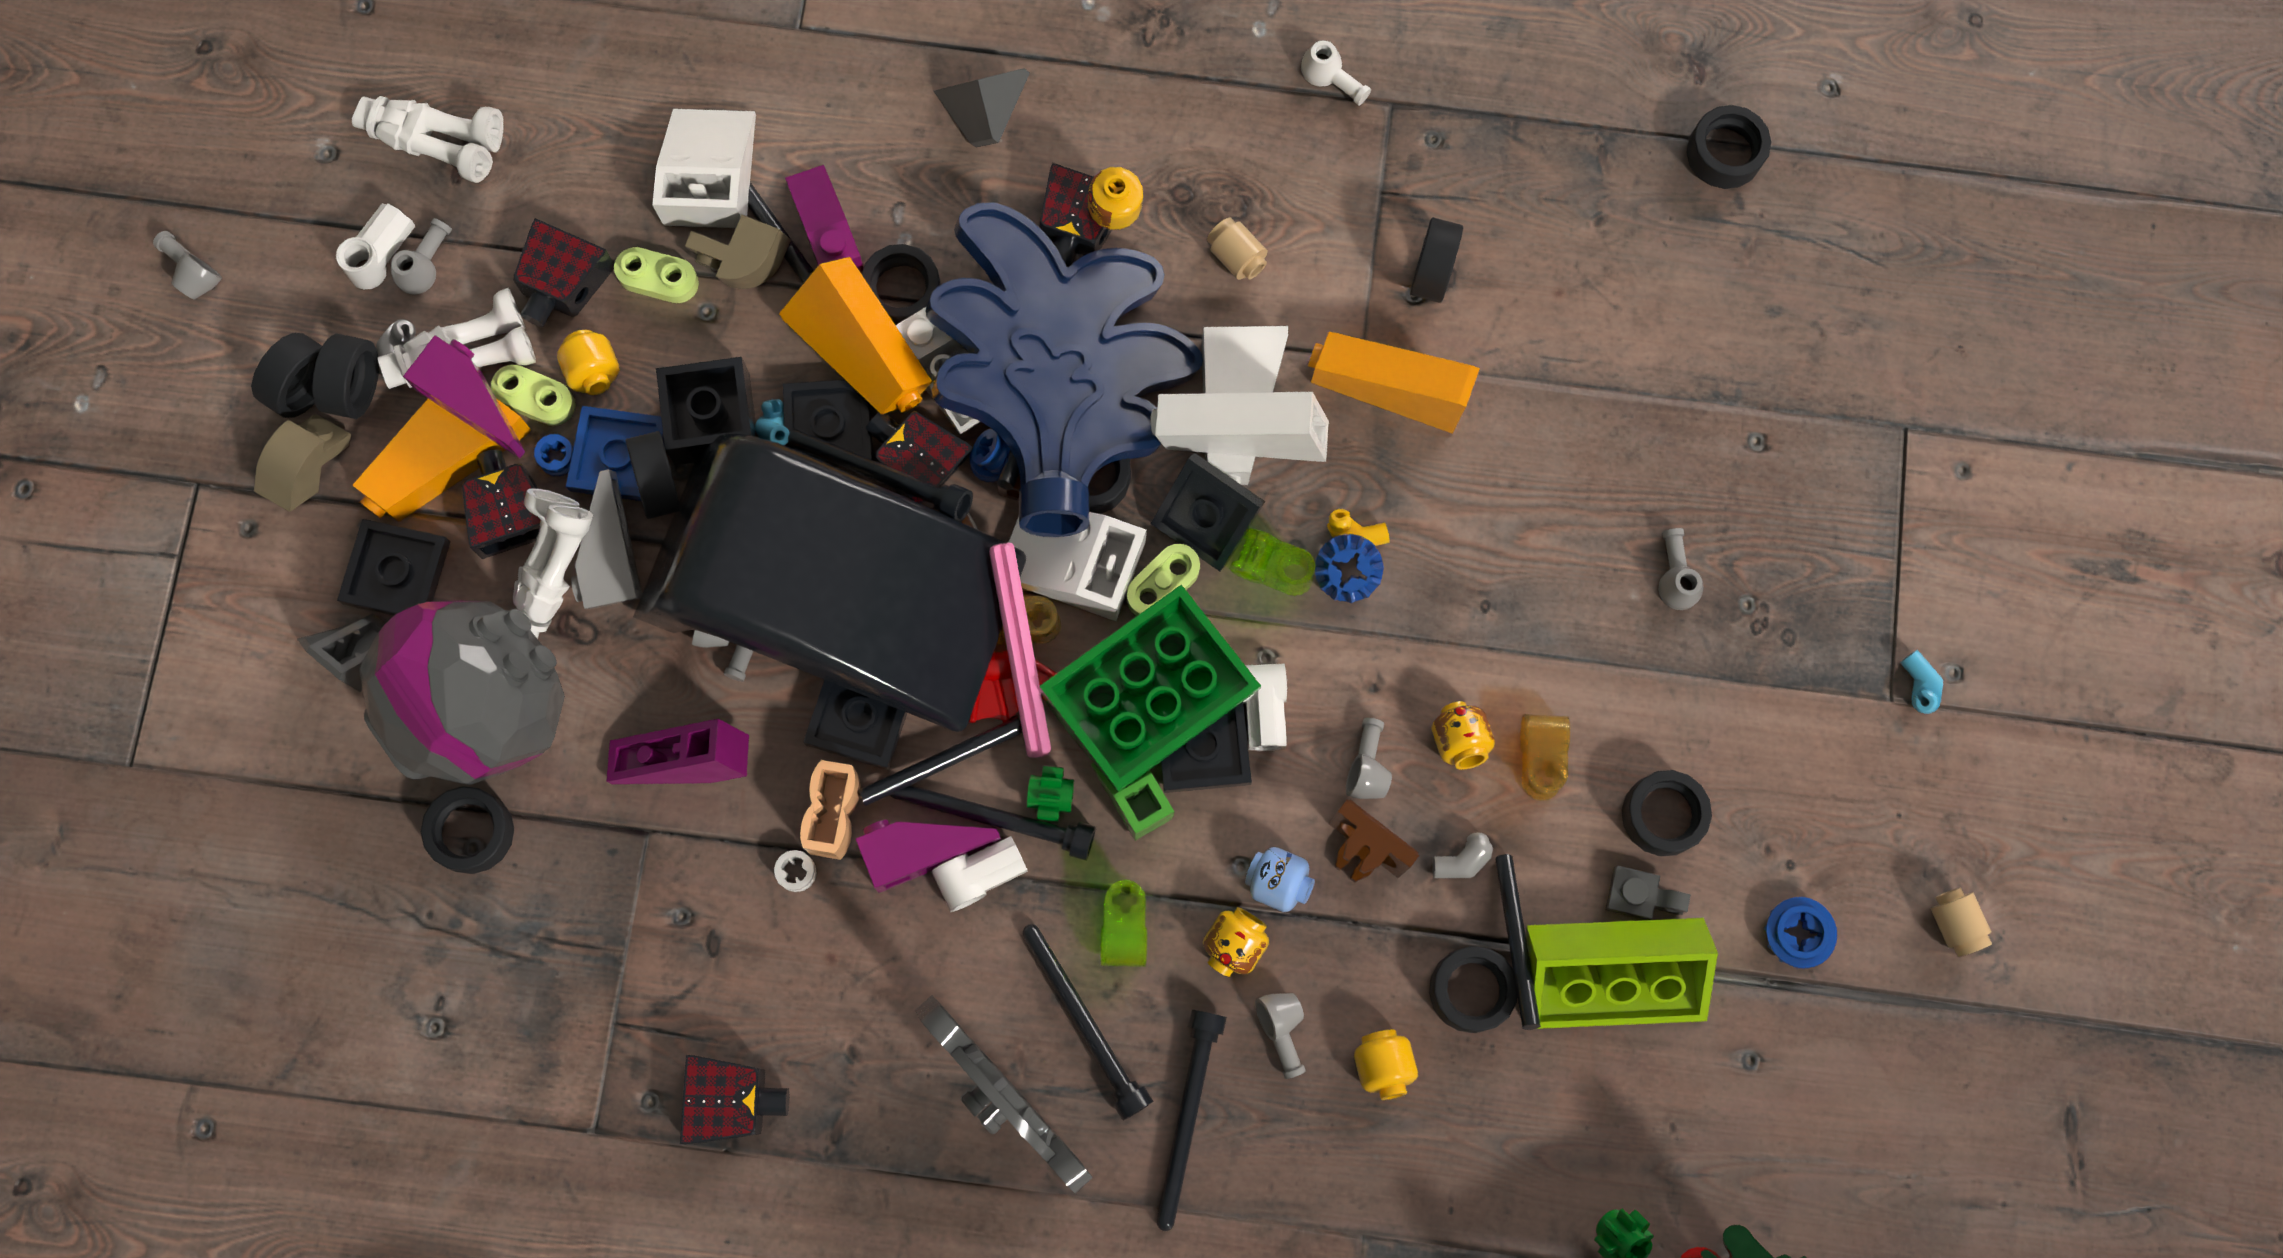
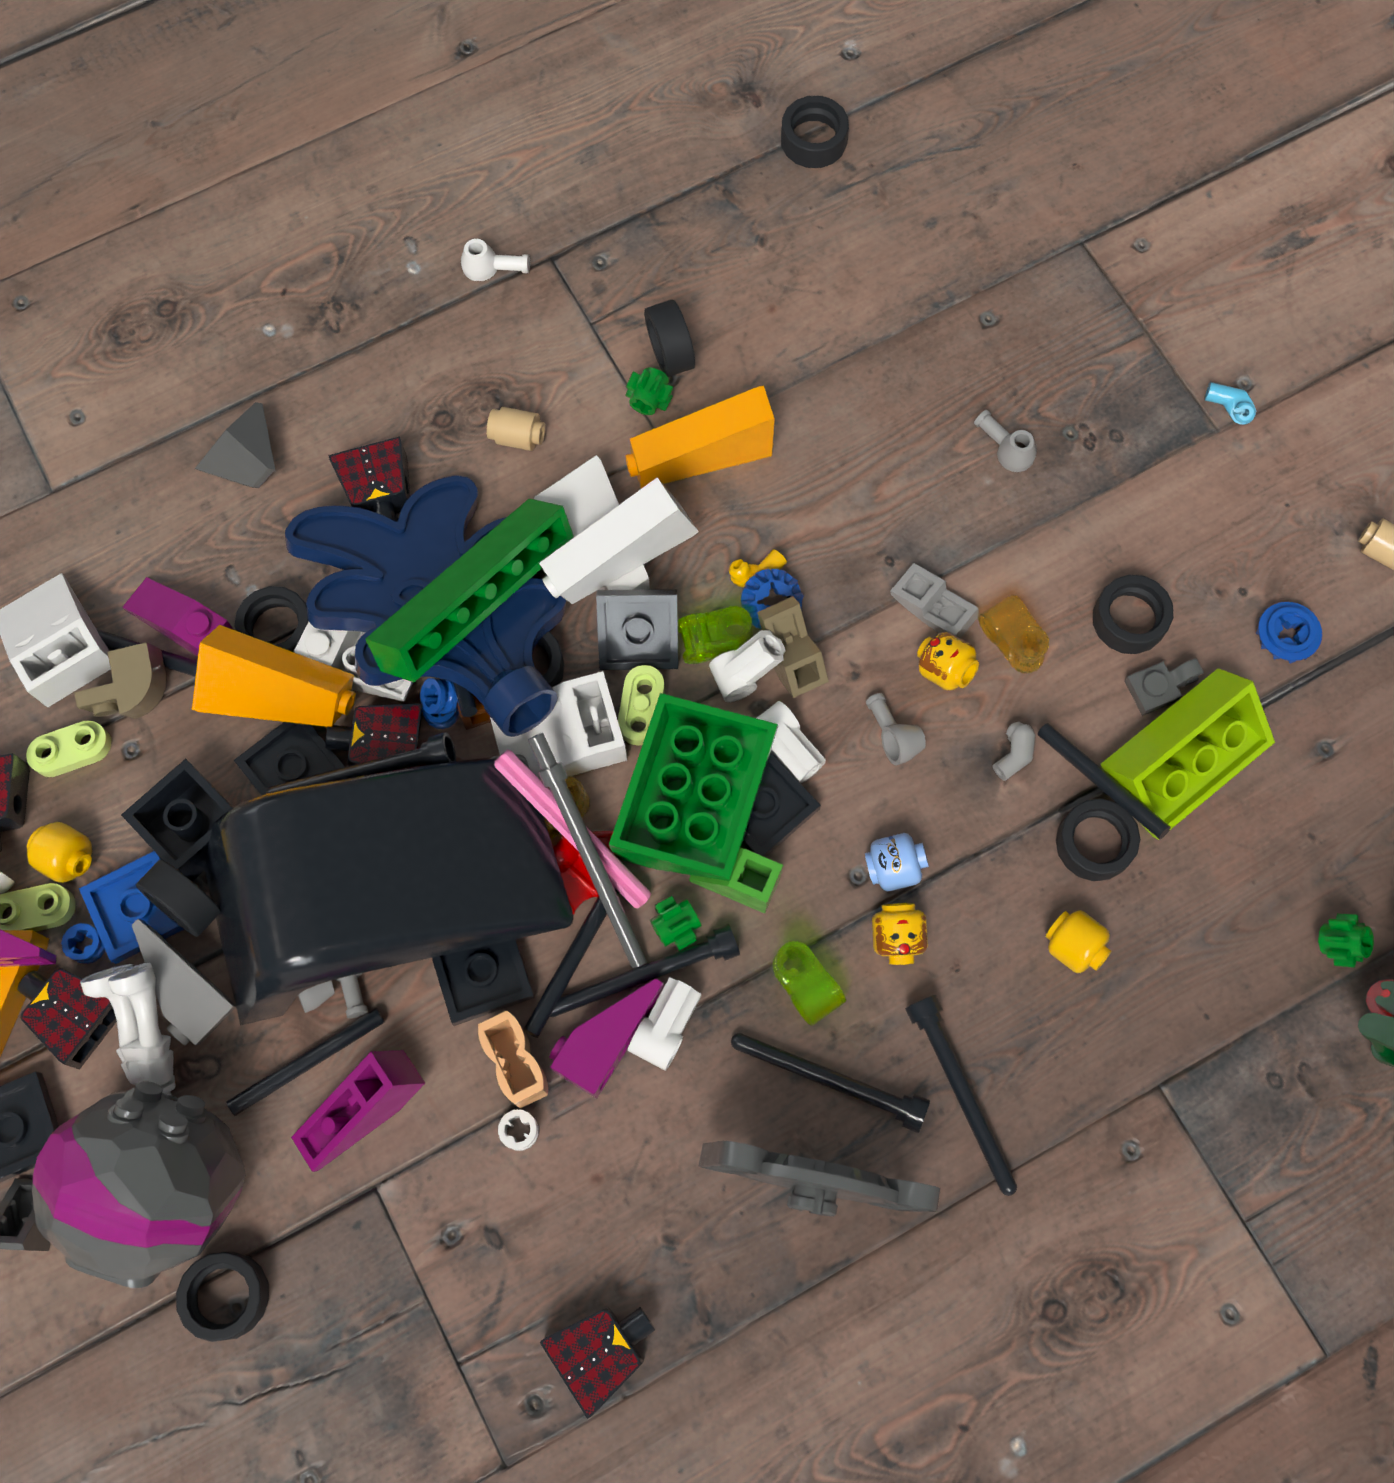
camera: 30 degrees left, 5 degrees down
(665, 686) = (305, 1062): none -> black bar
(771, 424) = (243, 790): medium azure arm -> none
(1032, 594) = (554, 776): none -> dark grey bar
(1082, 377) = (469, 590): none -> green brick
(1115, 198) = (397, 445): yellow head -> none
(1272, 611) = (741, 668): none -> white piece
(1278, 1017) = (973, 967): light grey bar -> none
(1331, 625) = (803, 661): none -> dark tan brick
(1370, 843) = (943, 785): reddish brown piece -> none
(1382, 297) = (649, 391): none -> green gear
(1494, 673) = (932, 603): none -> light grey slope

